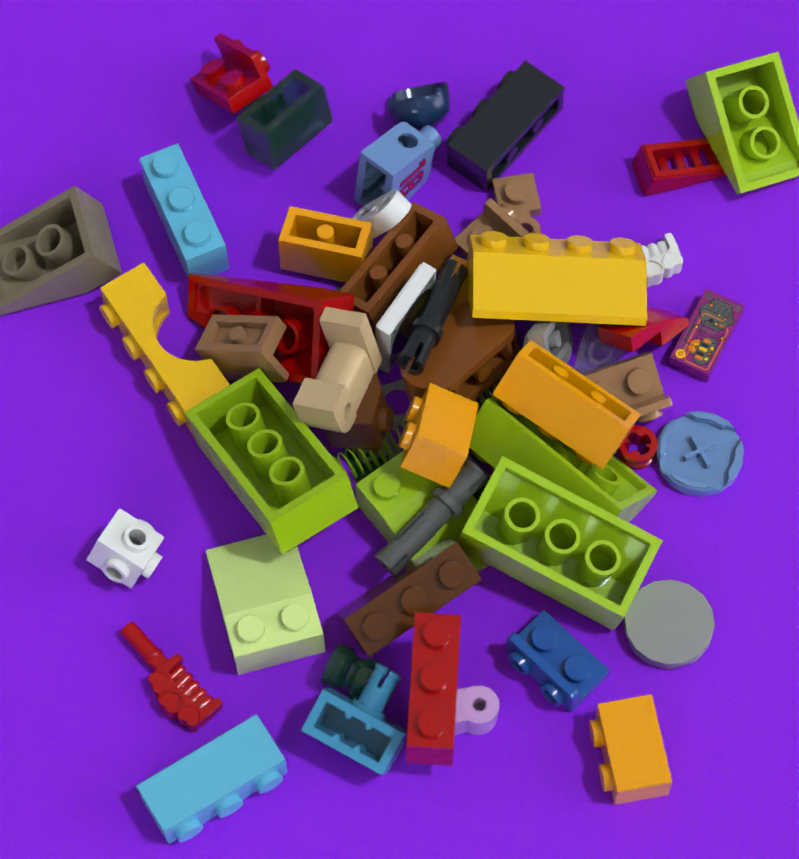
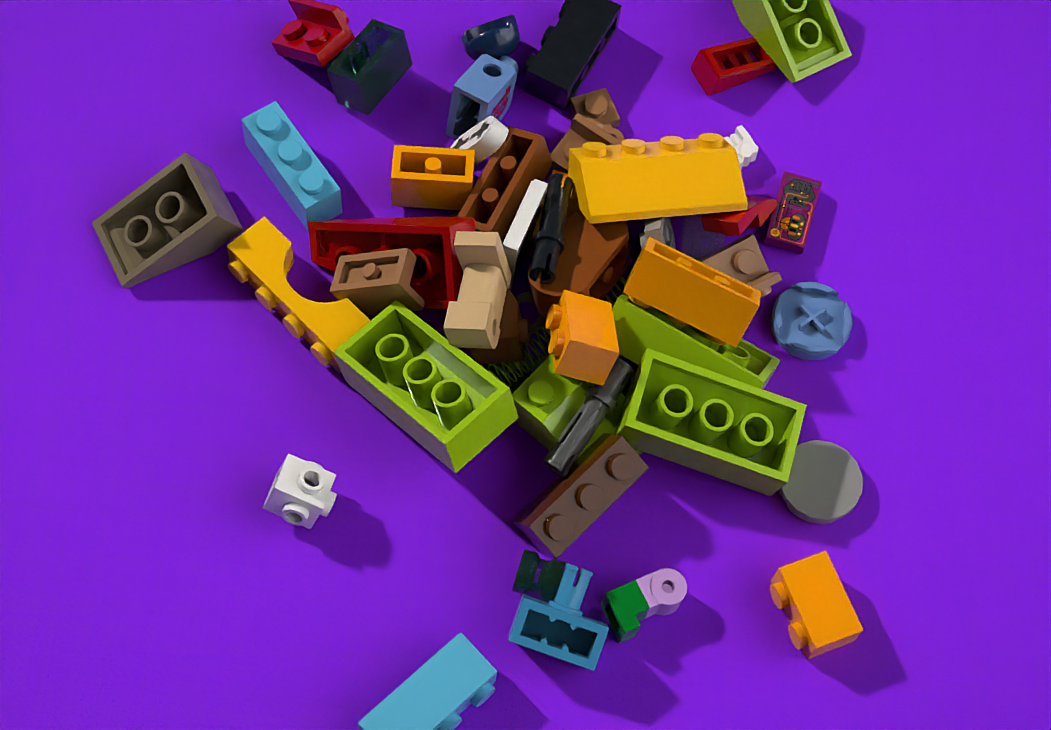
camera: 20 degrees left, 0 degrees up
(173, 686) = (372, 619): red piece -> none
(265, 603) = (443, 522): yellowish green slope -> none
(433, 689) = (627, 580): red brick -> none
(556, 661) = (725, 533): blue bracket -> none
(634, 459) = (760, 334): red bush -> none

